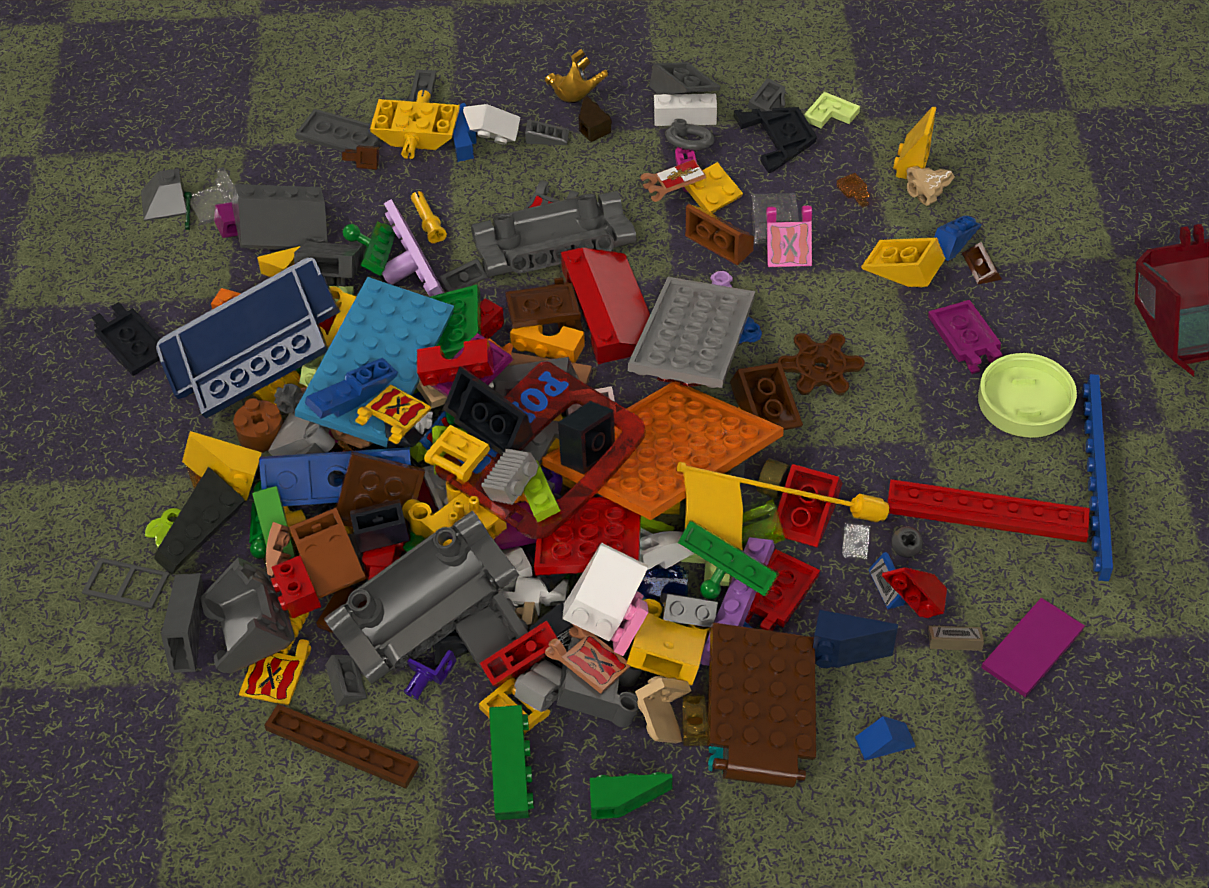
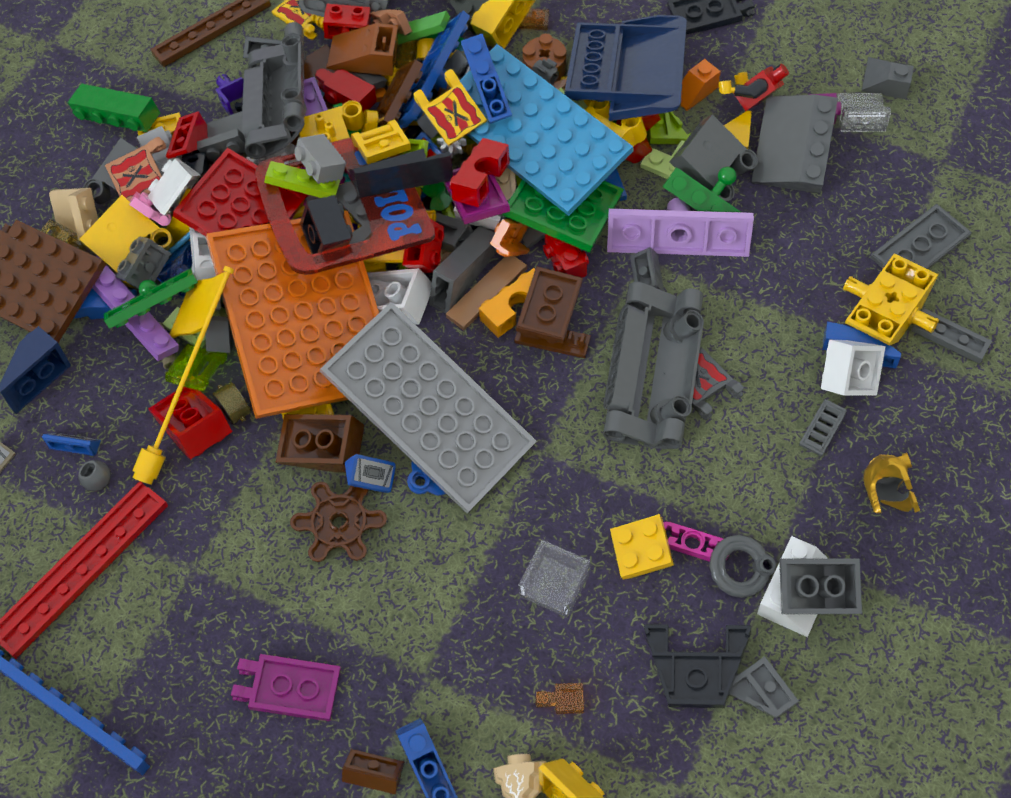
camera: 120 degrees right, 10 degrees up
(187, 195) = (878, 91): dark green hinge -> none
(229, 256) = (755, 90): none -> torso
(365, 156) = (864, 248): reddish brown plate -> none
(379, 525) = (360, 78): black slope -> none
(430, 222) = (755, 272): yellow pin -> none
(593, 121) = (819, 477): dark brown slope -> none
(607, 299) = (538, 373): red slope -> none
(622, 794) = (41, 167): green slope -> none
(673, 178) = (669, 512): flag -> none
(718, 234) = (564, 510): dark orange slope -> none
(721, 278) = (500, 485): lavender plate -> none
(769, 355) = (370, 473): none -> slope
(787, 592) = (127, 360): red tile -> none
(789, 241) = (509, 571): flag -> none
(831, 106) = (717, 750): yellowish green plate -> none
(856, 540) = (127, 437): clear bracket -> none
(906, 260) = (420, 682): yellow slope -> none
(919, 590) = (32, 442): red slope -> none
(1027, 395) = (170, 689): yellowish green piece -> none

